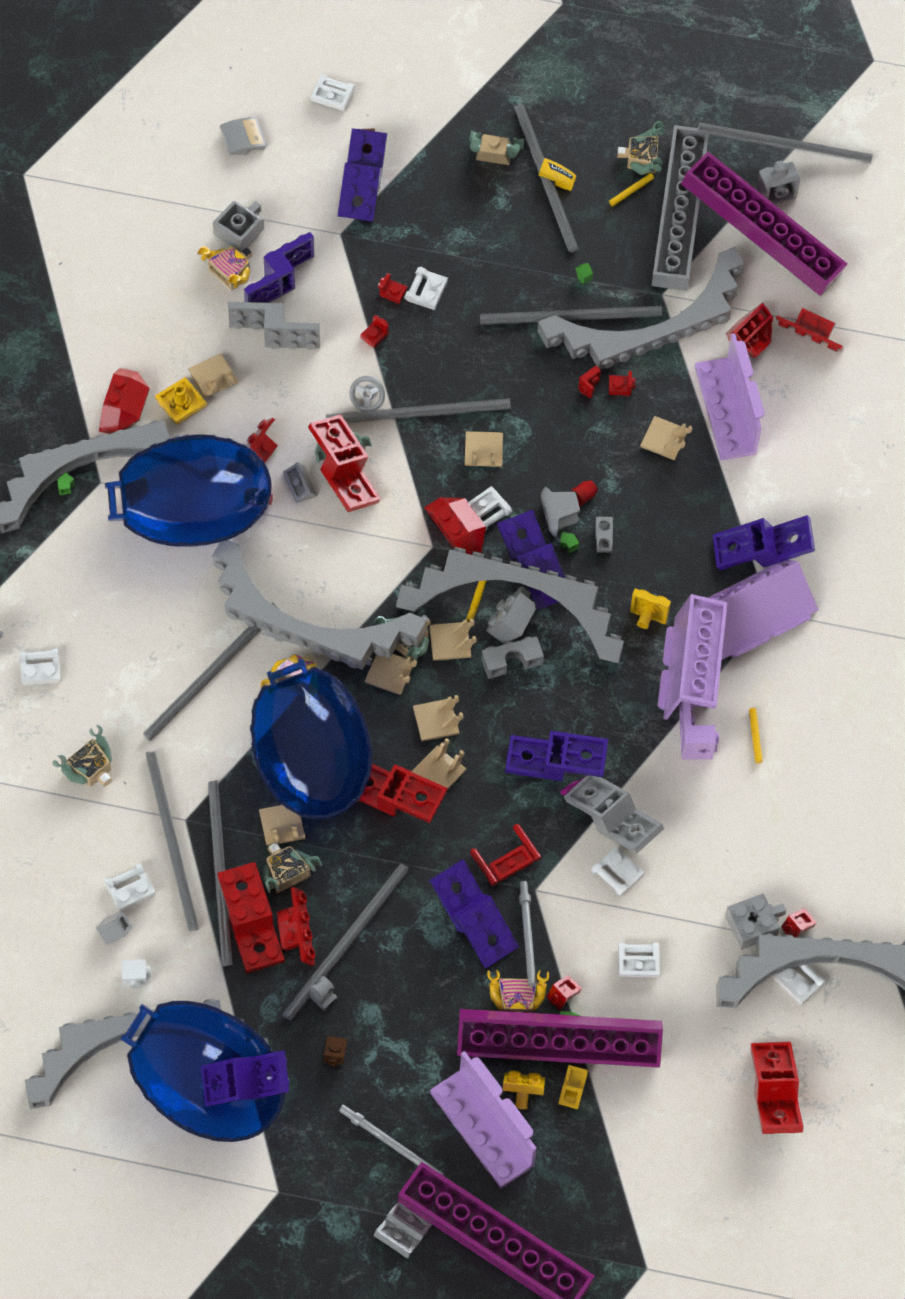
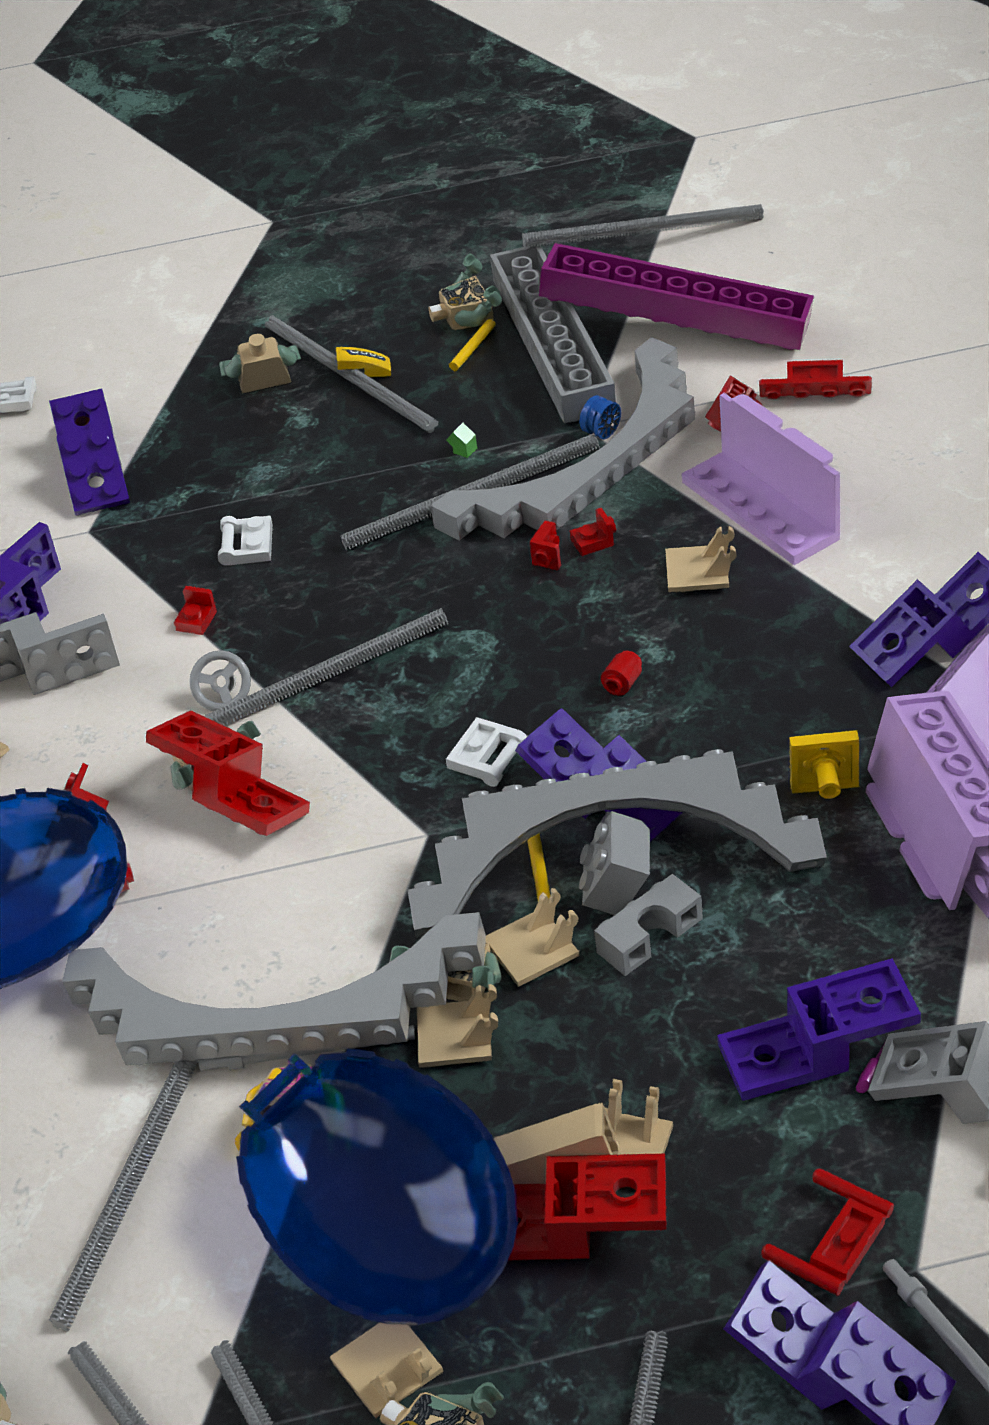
camera: 15 degrees left, 20 degrees down
(299, 482) = (166, 836): light grey slope -> none
(391, 289) = (194, 559): red bracket -> none
(417, 761) = (571, 1134): none -> tan slope
(437, 719) = (576, 1066): tan plate -> none
(458, 523) = (442, 780): red wedge -> none
(483, 449) = (437, 682): tan plate -> none
(559, 509) = (598, 702): light grey piece -> none
(569, 542) = (641, 739): bright green piece -> none
(604, 534) = (688, 709): light grey leg -> none
(671, 296) = (599, 415): none -> blue wheel
(779, 182) = (666, 247): light grey hinge -> none

